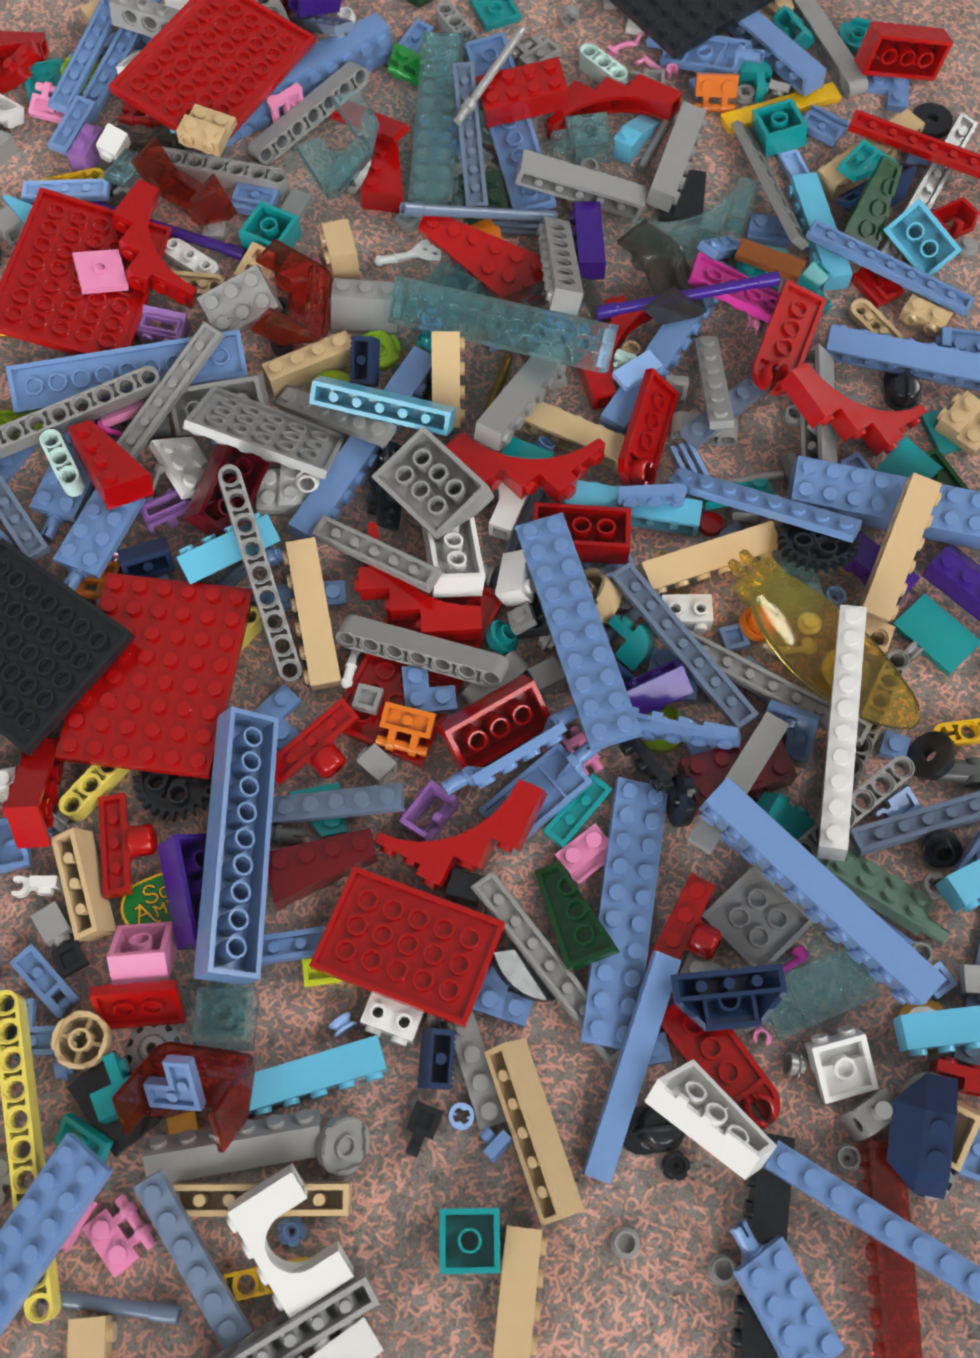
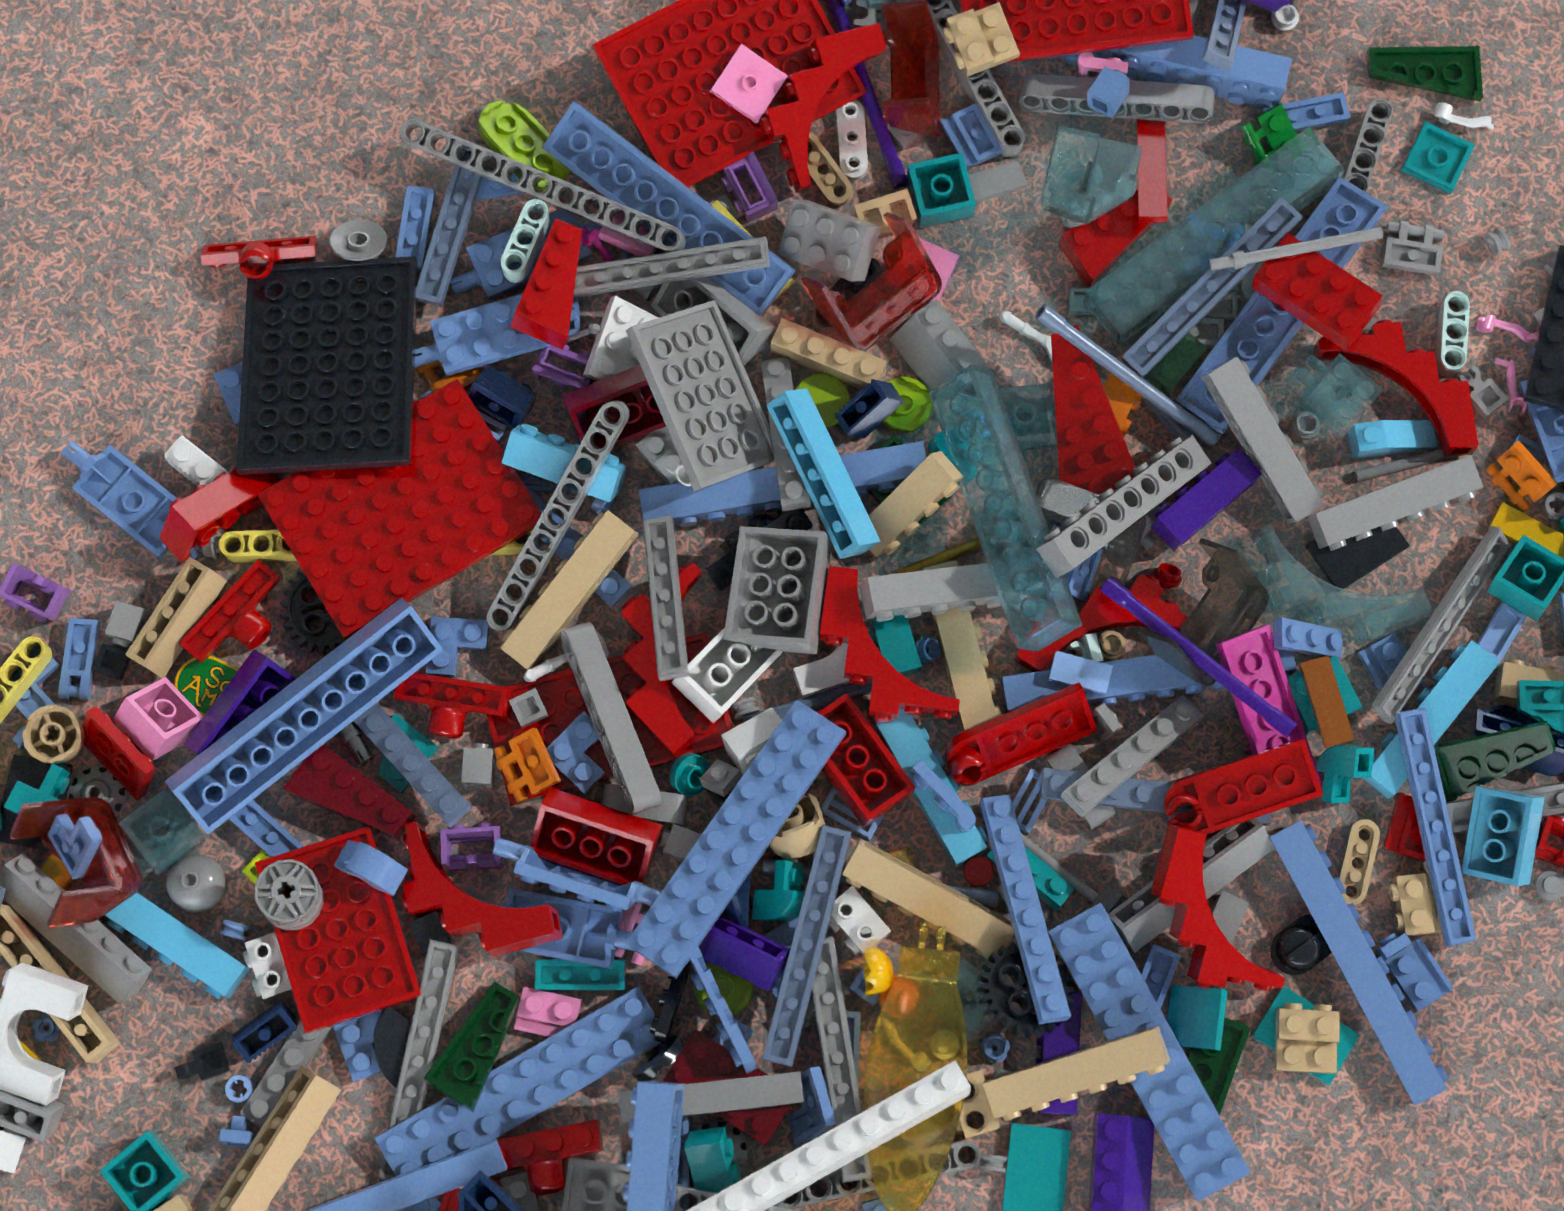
camera: 50 degrees right, 10 degrees up
(42, 884) = (151, 585): white plate -> none
(284, 1027) = (196, 884): none -> light grey cylinder
(303, 103) = (1108, 91): none -> medium blue brick
(339, 250) = (973, 277): tan brick -> none
(343, 1145) = (139, 1012): light grey tile -> none
(363, 966) = (305, 897): none -> light grey wheel
(385, 879) = (371, 866): none -> medium blue brick
(615, 291) = (1168, 575): none -> red plate
(733, 620) = (877, 971): none -> yellow hair

